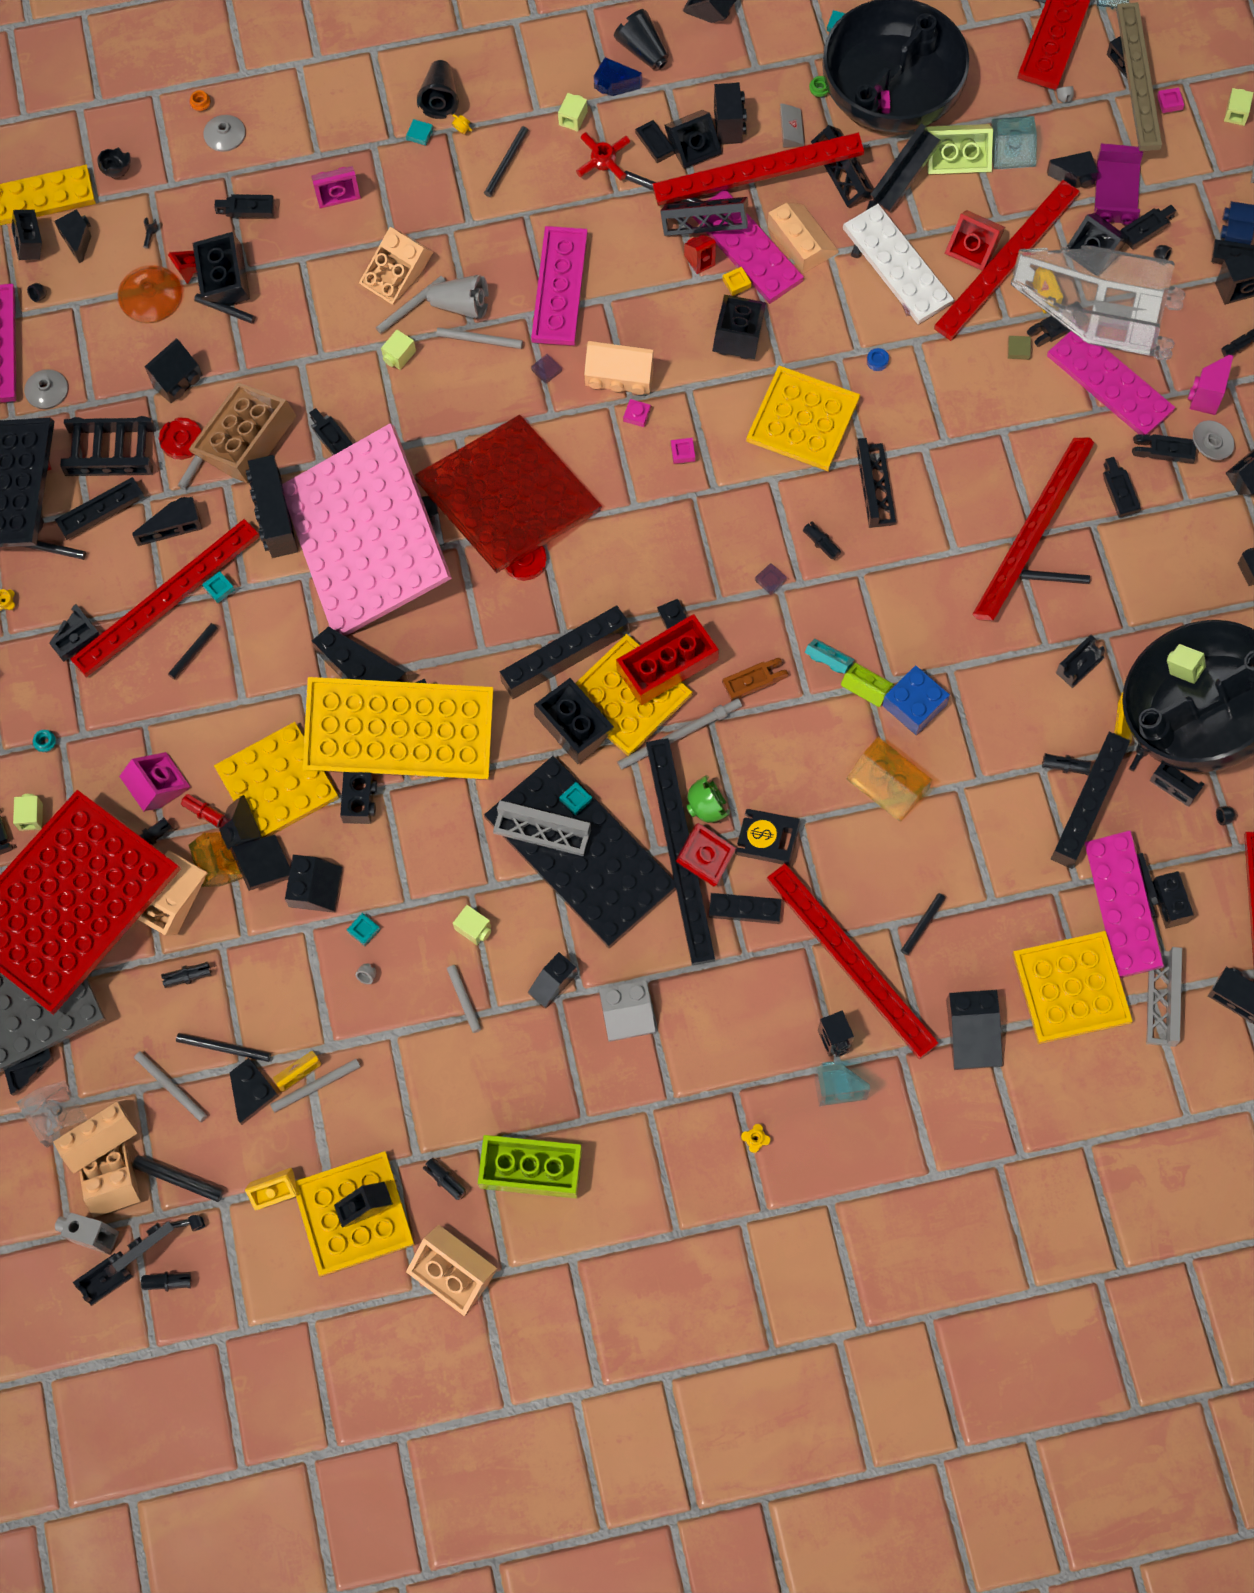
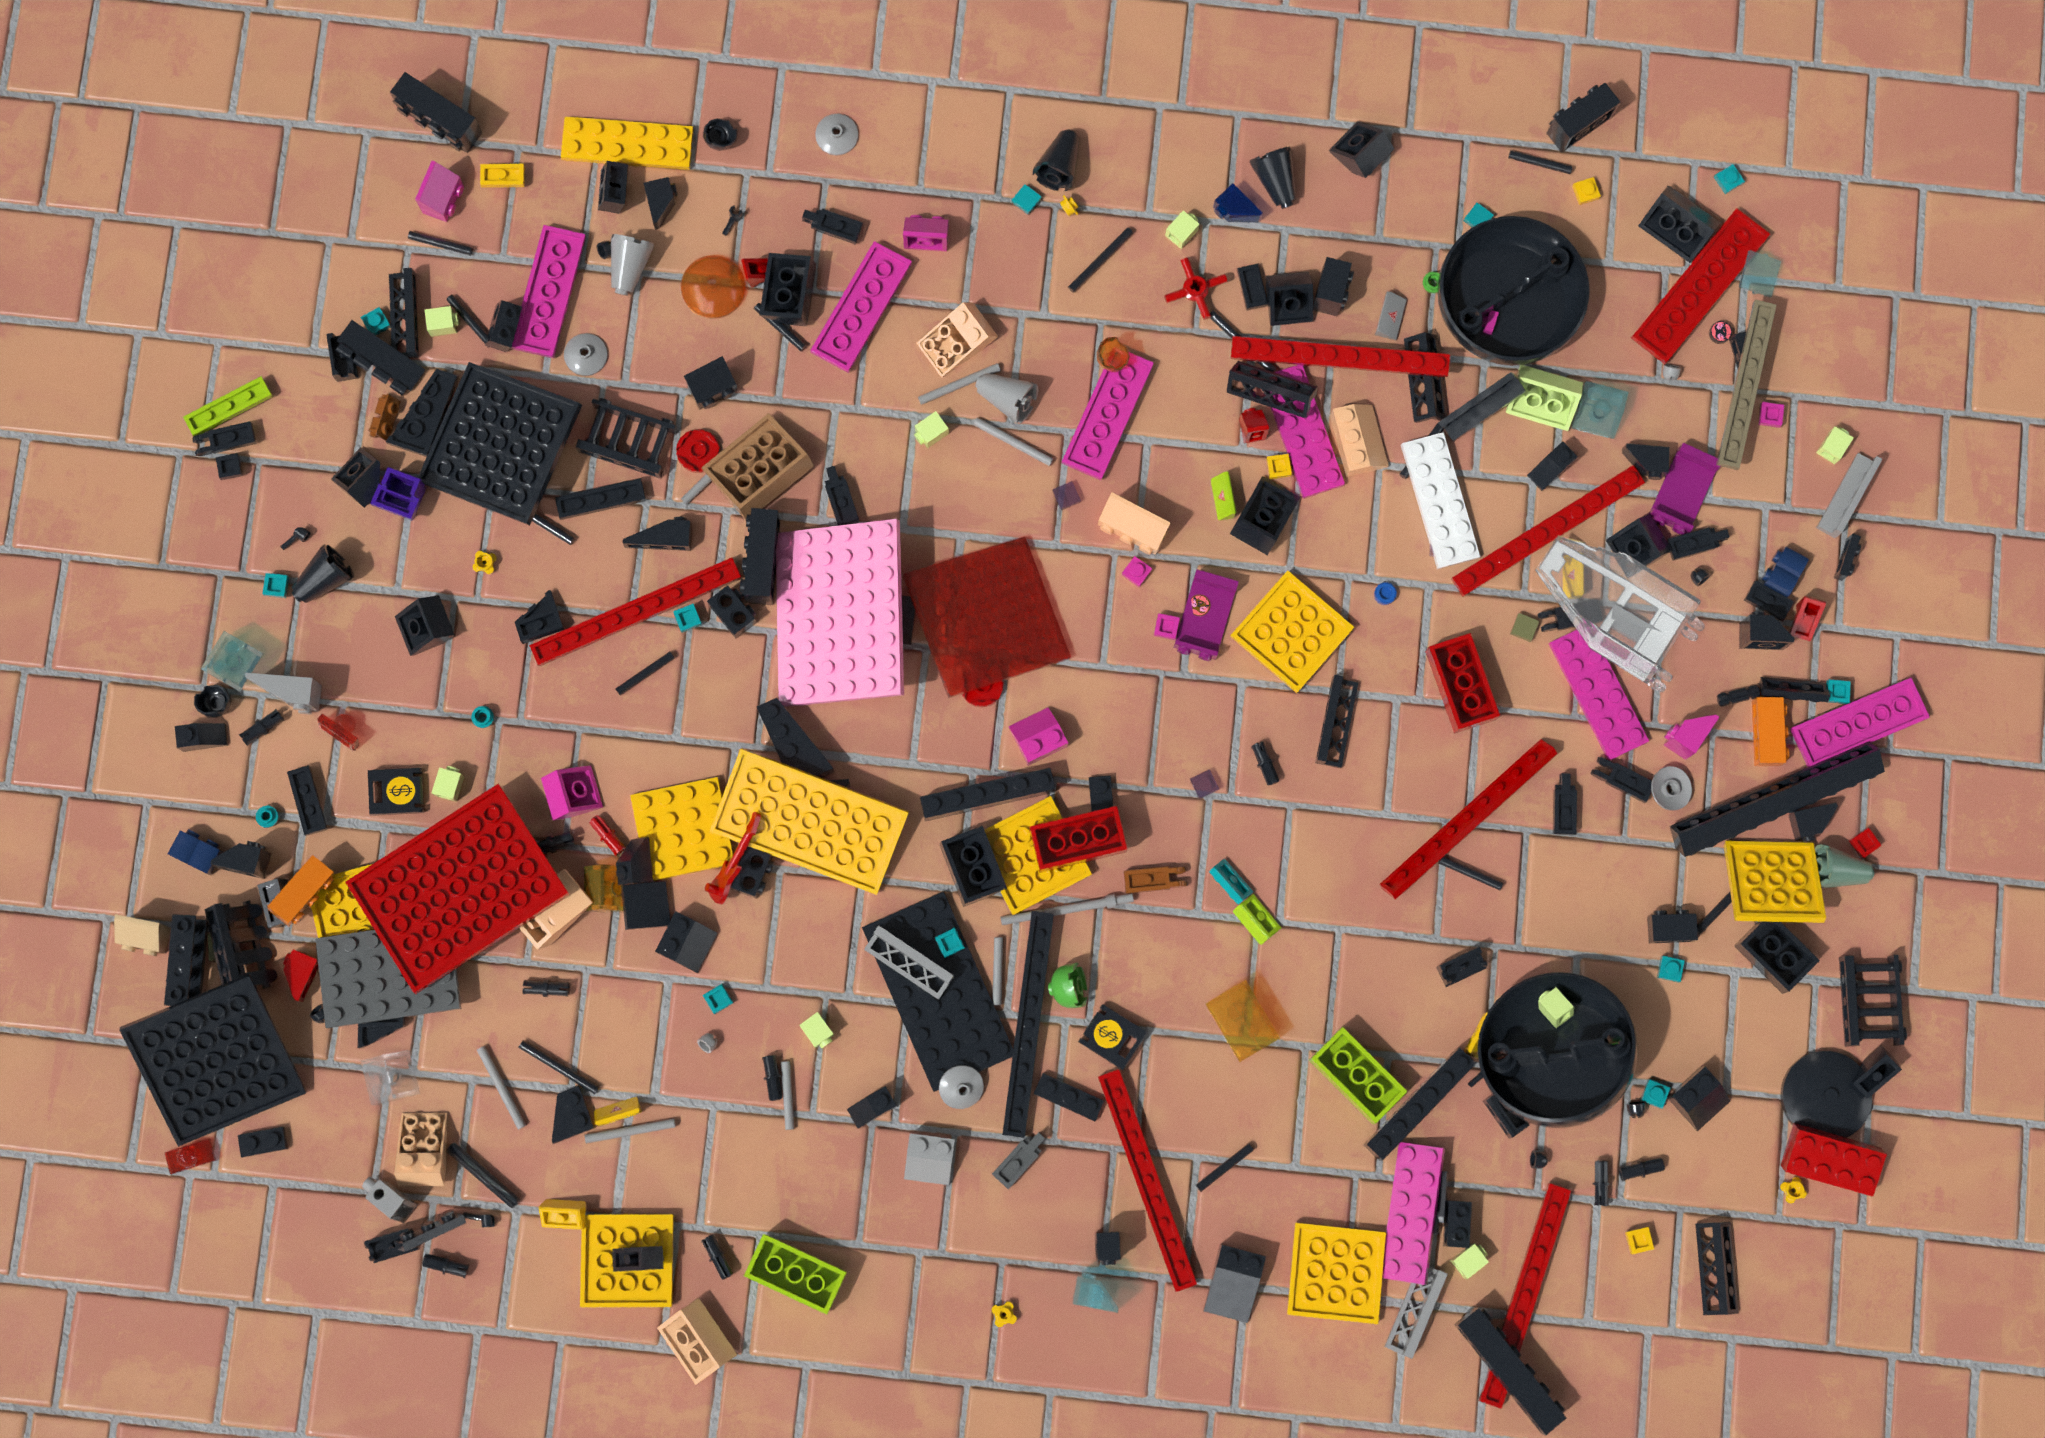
camera: 10 degrees right, 10 degrees up
(60, 291) = (628, 262): none -> light grey cone
(95, 1137) = (420, 1114): light nougat slope -> none
(198, 96) = (823, 86): orange plate -> none
(257, 570) = (728, 614): none -> black brick
(295, 267) = (861, 307): none -> dark pink plate
(332, 816) = (722, 882): none -> red piece
(442, 985) = (772, 1077): none -> black axle
(546, 230) = (1112, 354): none -> clear orange hair
(597, 586) = (1038, 736): none -> dark pink slope
(624, 928) = (959, 1077): none -> light grey dish
(632, 813) = (997, 971): none -> light grey bar
(695, 322) = (1223, 496): none -> lime slope
(706, 854) = (1050, 1036): red tile -> none
(707, 424) = (1200, 605): none -> tile
(716, 428) = (1204, 633): none -> magenta panel
(717, 984) = (1018, 1161): none -> dark grey hinge
(915, 700) = (1295, 953): blue brick -> none
(974, 239) = (1523, 501): red slope -> none
(981, 409) = (1462, 683): none -> red brick
(991, 197) = (1552, 466): none -> black slope
(1020, 791) = (1358, 1075): none -> lime brick
(1066, 764) = (1398, 1054): black pin -> none
(1095, 49) = (1720, 332): none -> tile
(1198, 930) = (1470, 1260): none -> yellowish green brick

